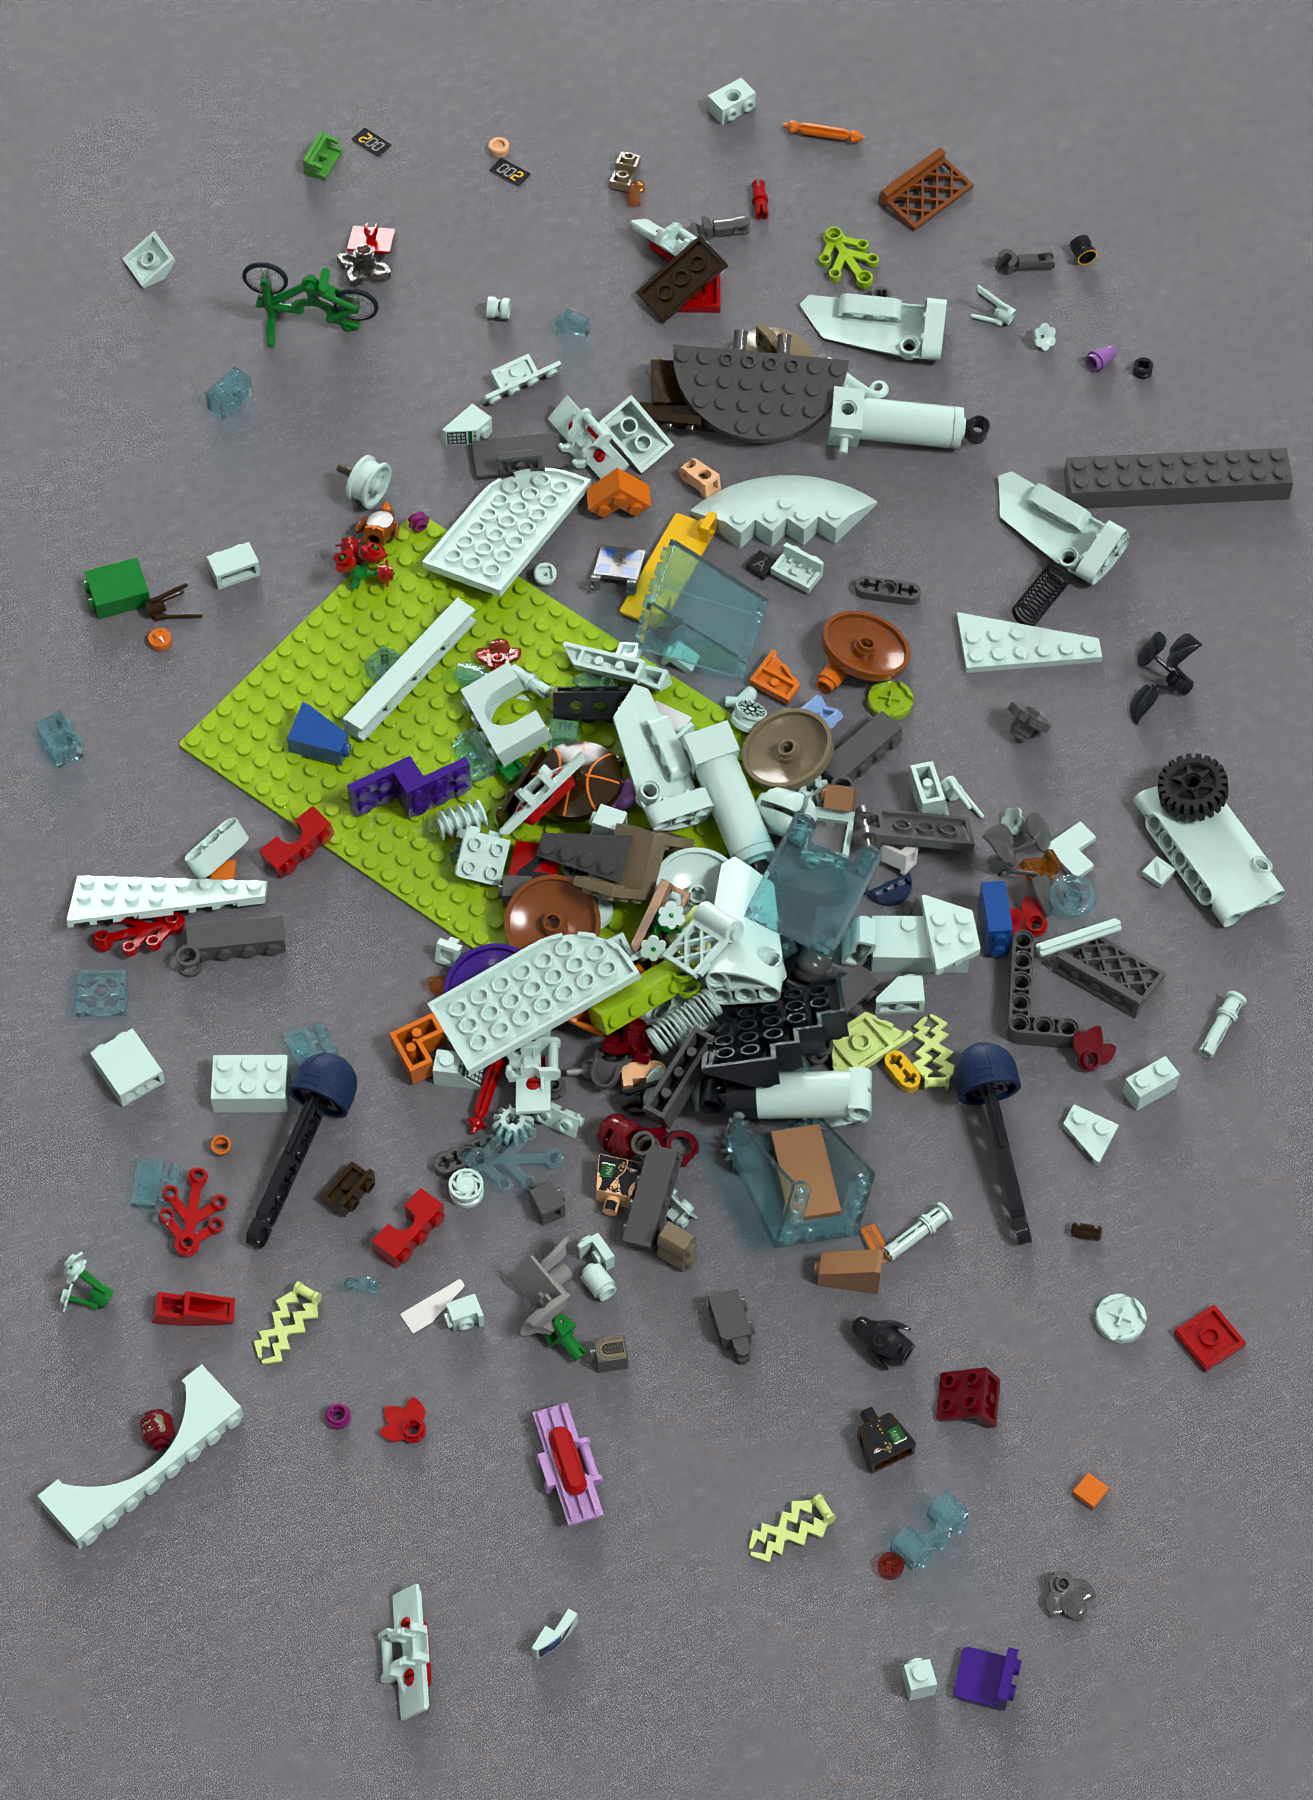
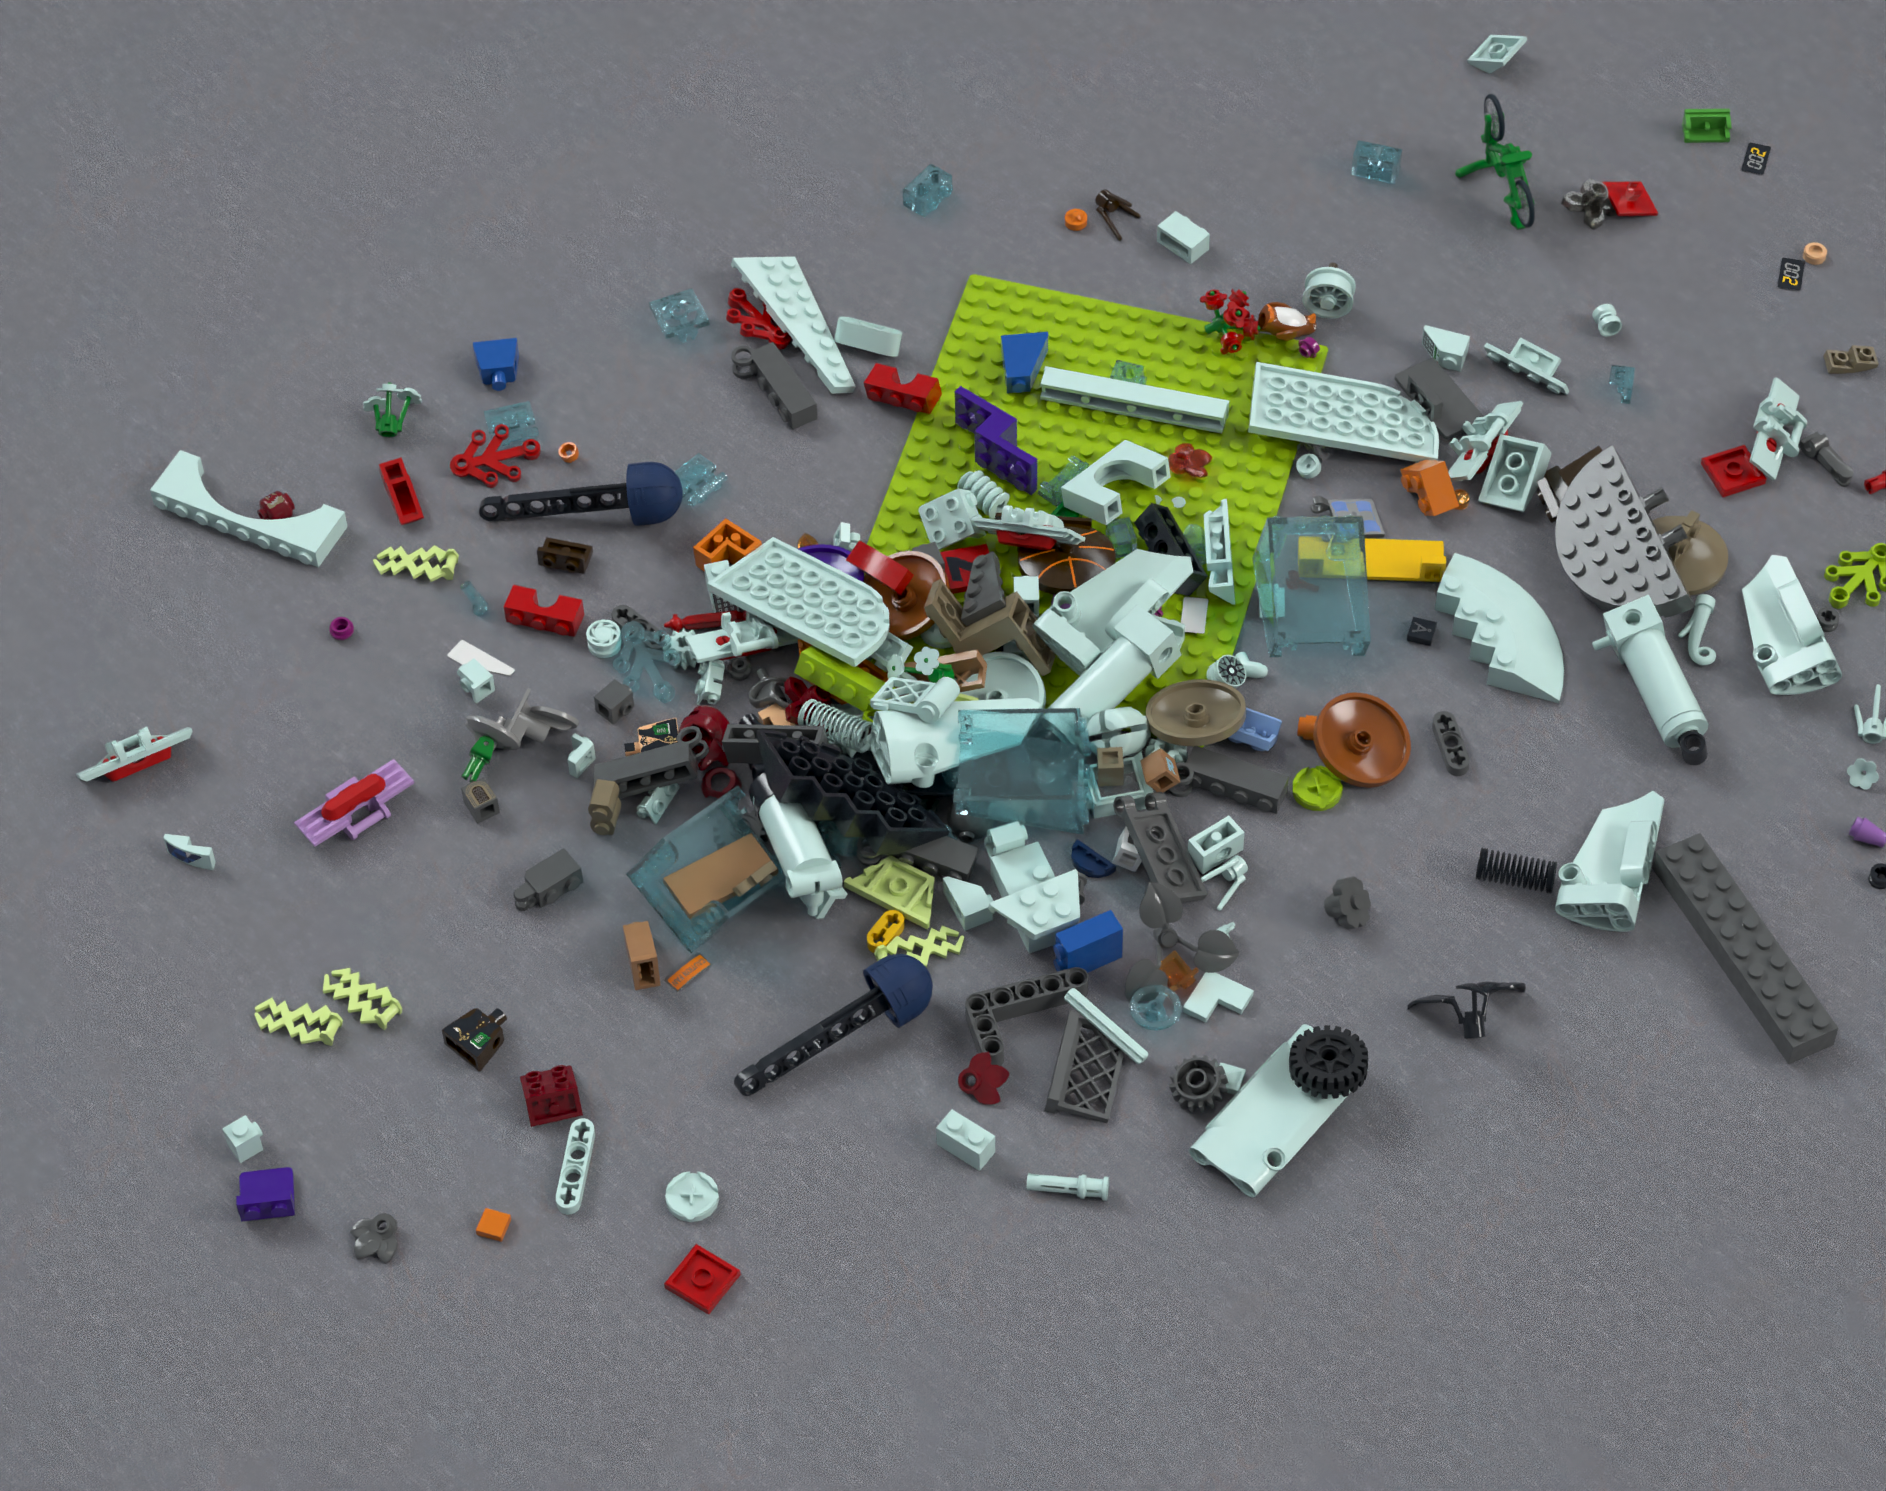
camera: 70 degrees right, 5 degrees down
(71, 1172) = (497, 361): none -> blue torso
(116, 588) = (1111, 167): green brick -> none
(127, 1067) = (616, 360): light aqua brick -> none
(225, 871) = (852, 355): orange tile -> none
(250, 1083) = (635, 440): light aqua brick -> none
(402, 1420) = (356, 676): red plate -> none
(468, 673) = (1153, 440): clear light blue brick -> none
(518, 926) = (880, 567): none -> red slope
(532, 683) = (1172, 493): light aqua pin -> none
(598, 1281) = (550, 766): light aqua brick -> none
(629, 649) = (1243, 555): light aqua tile -> none
(633, 192) = (1829, 373): clear orange arm -> none
(682, 279) = (1731, 443): dark brown tile -> none
(700, 477) = (1495, 545): light nougat leg -> none
(775, 679) = (1288, 684): orange wing -> none
(791, 1603) = (289, 1017): none -> yellowish green piece
(798, 568) = (1428, 659): light aqua bracket -> none
(827, 828) = (1110, 766): none -> dark tan brick
(829, 1141) = (760, 876): none -> dark tan plate
(884, 1340) = (578, 1004): black animal -> none
(890, 1565) = (354, 1086): clear red tile -> none
(916, 1547) = (415, 1112): clear light blue arch -> none
(926, 1225) = (721, 1001): light aqua pin -> none
(1007, 645) = (1442, 866): light aqua wing -> none
(1027, 915) = (1109, 978): red plate -> none
(1051, 1406) = (577, 1166): none -> light aqua beam
(1086, 1231) = (775, 1137): dark brown piece -> none
(1090, 1132) = (889, 1109): light aqua wing -> none
(1160, 904) = (1200, 1095): none -> dark grey gear

